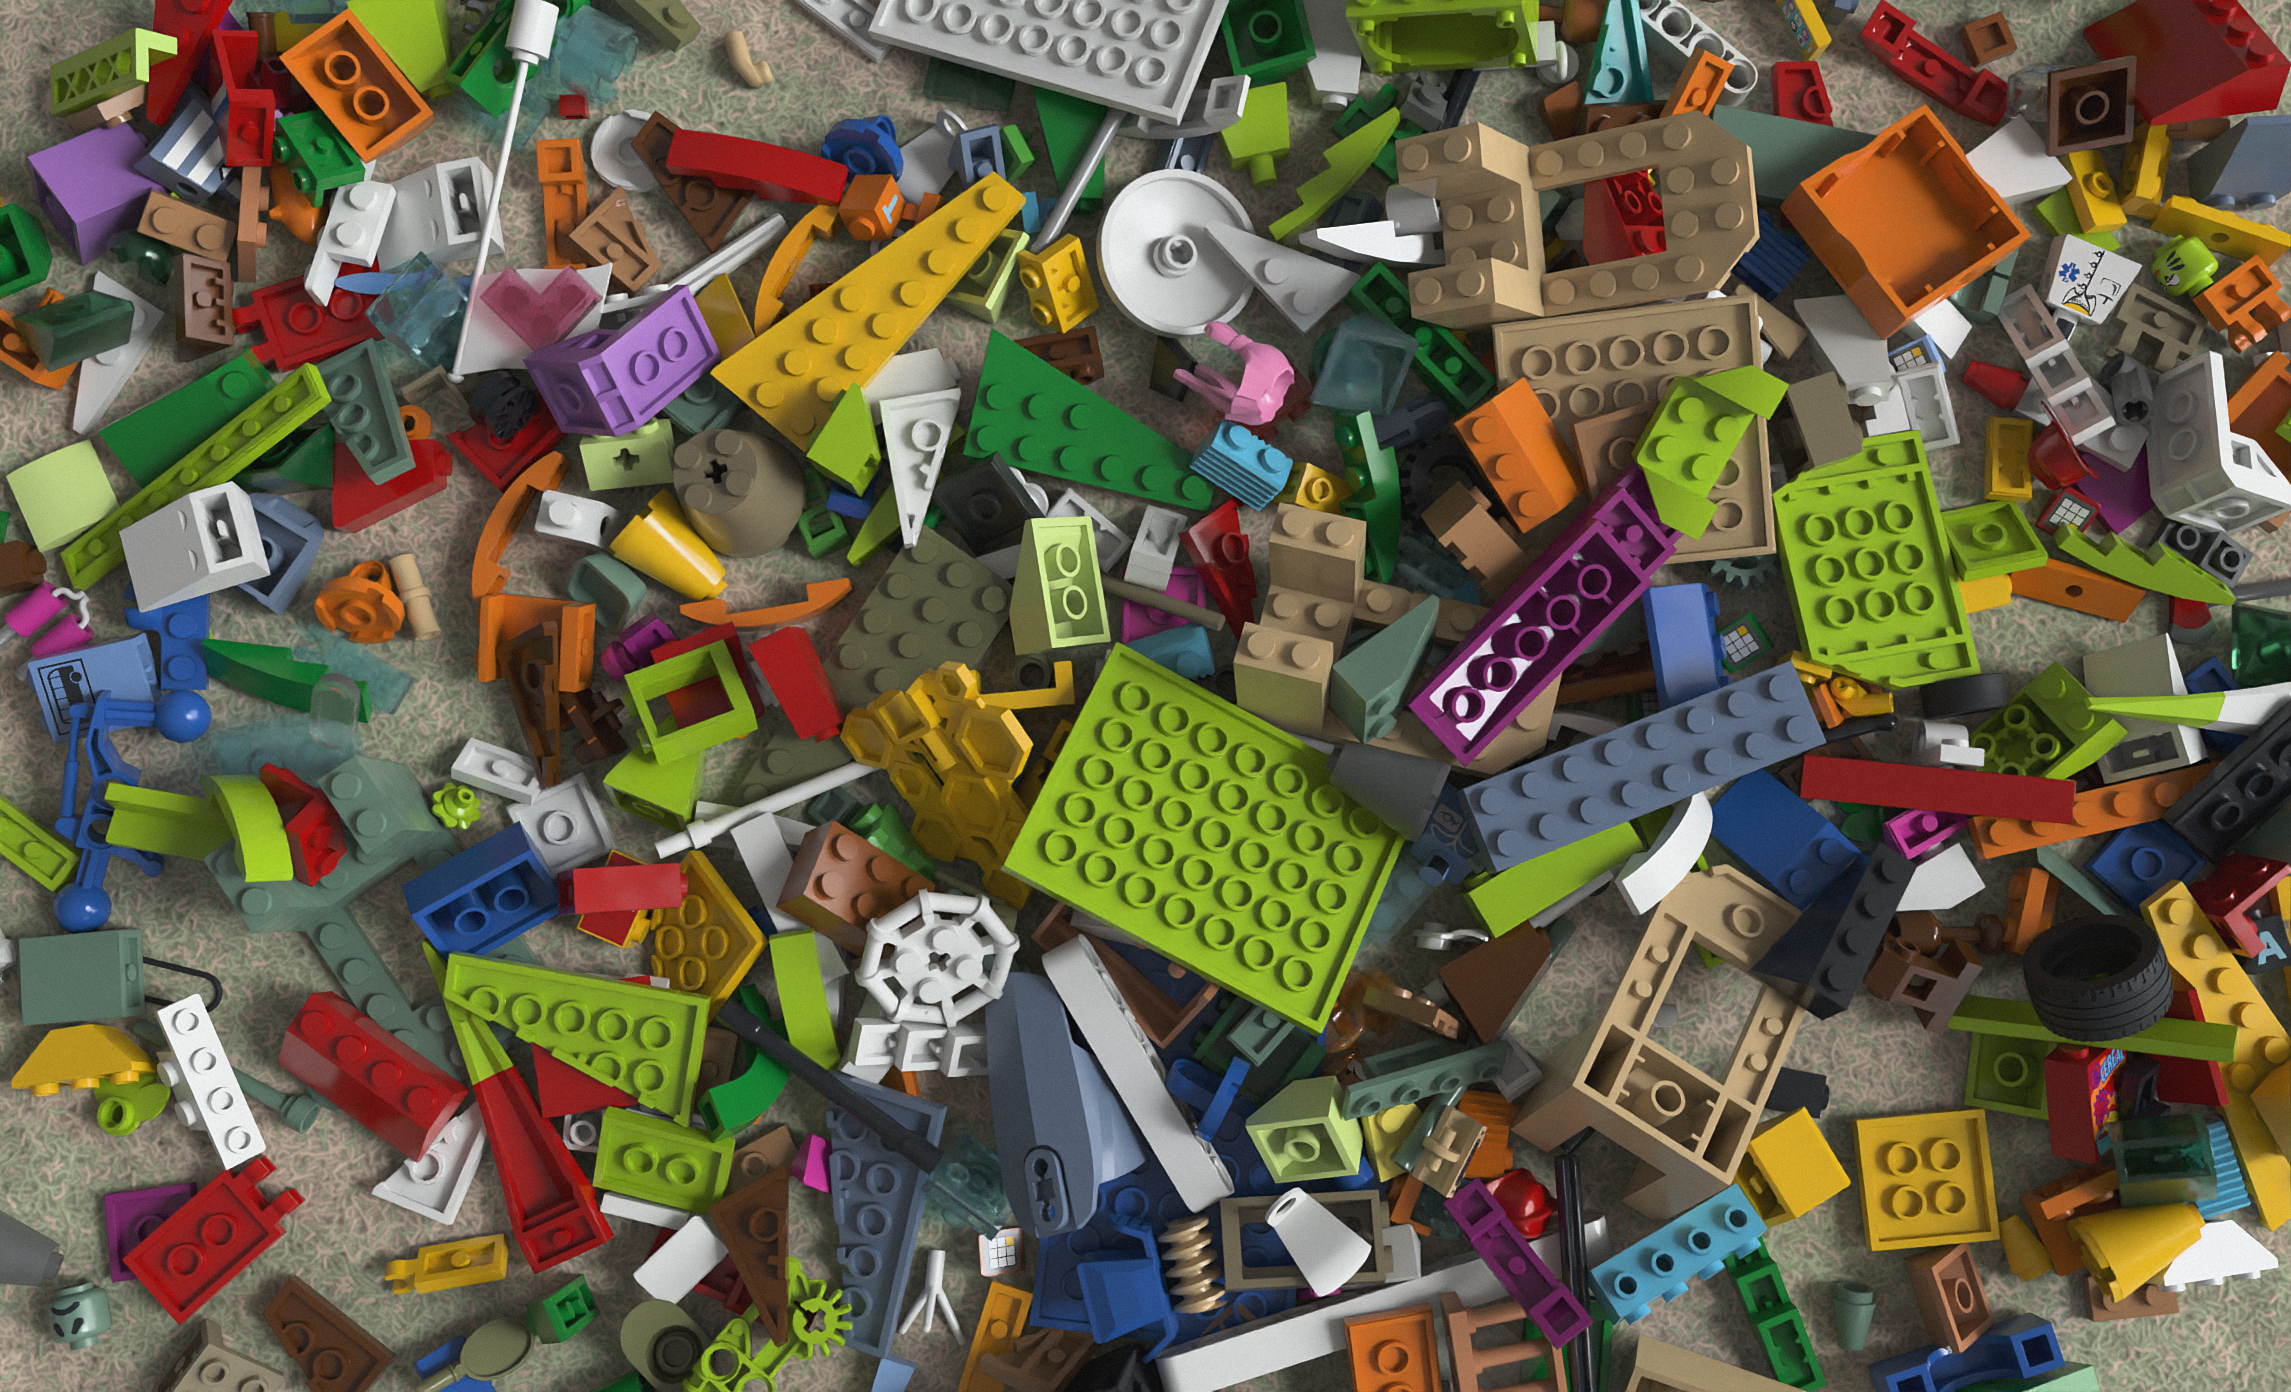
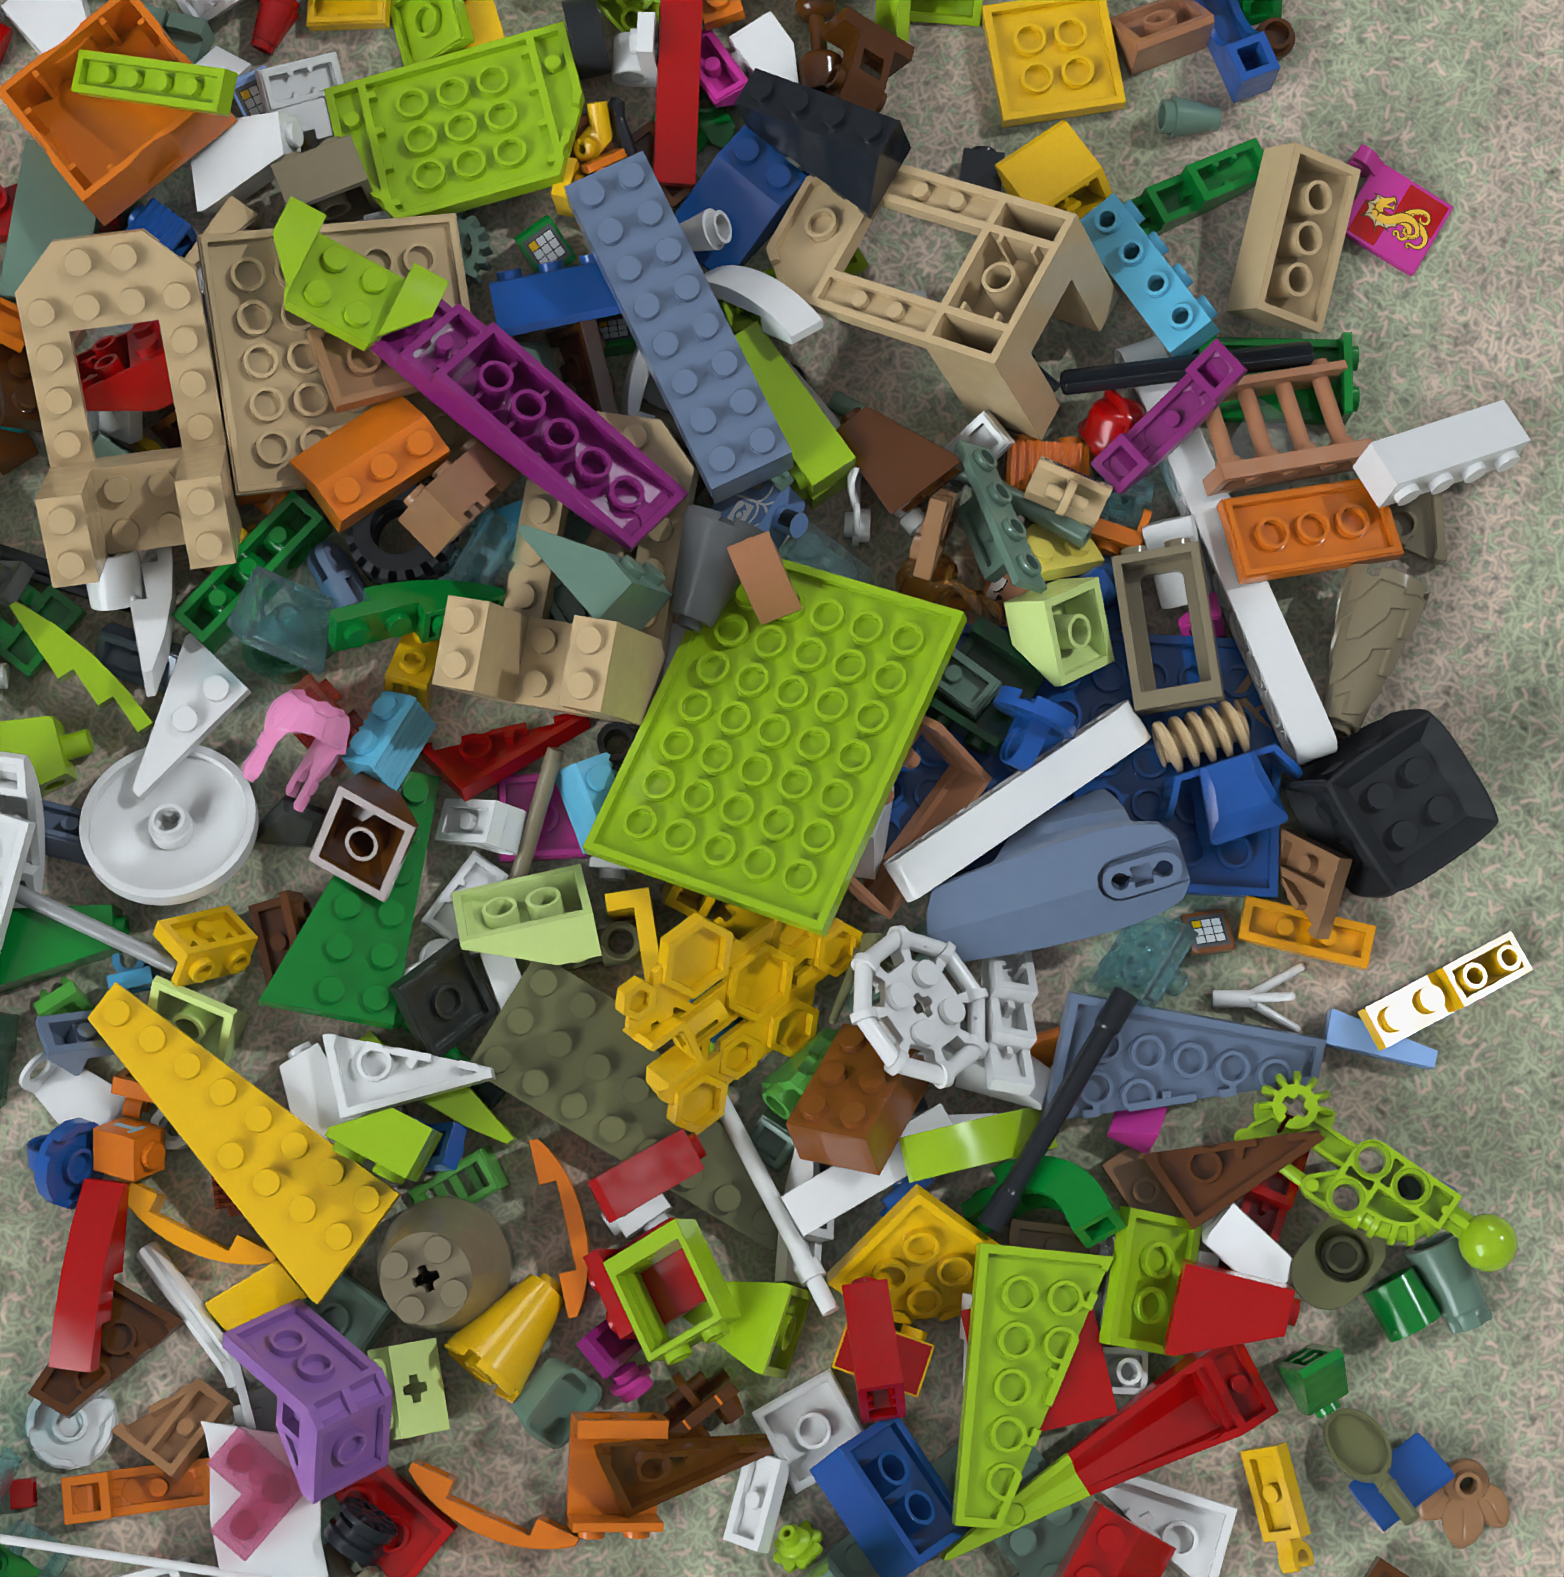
camera: 90 degrees left, 5 degrees down
(577, 521) = (484, 1439): white torso -> none
(625, 1233) = (1226, 1309): none -> red slope
(1147, 436) = (365, 835): none -> reddish brown slope
(1317, 1241) = (1167, 608): white piece -> none
(1371, 836) = (764, 577): none -> nougat slope
(1748, 803) = (707, 230): none -> white cone
(1922, 258) = (154, 82): none -> lime plate

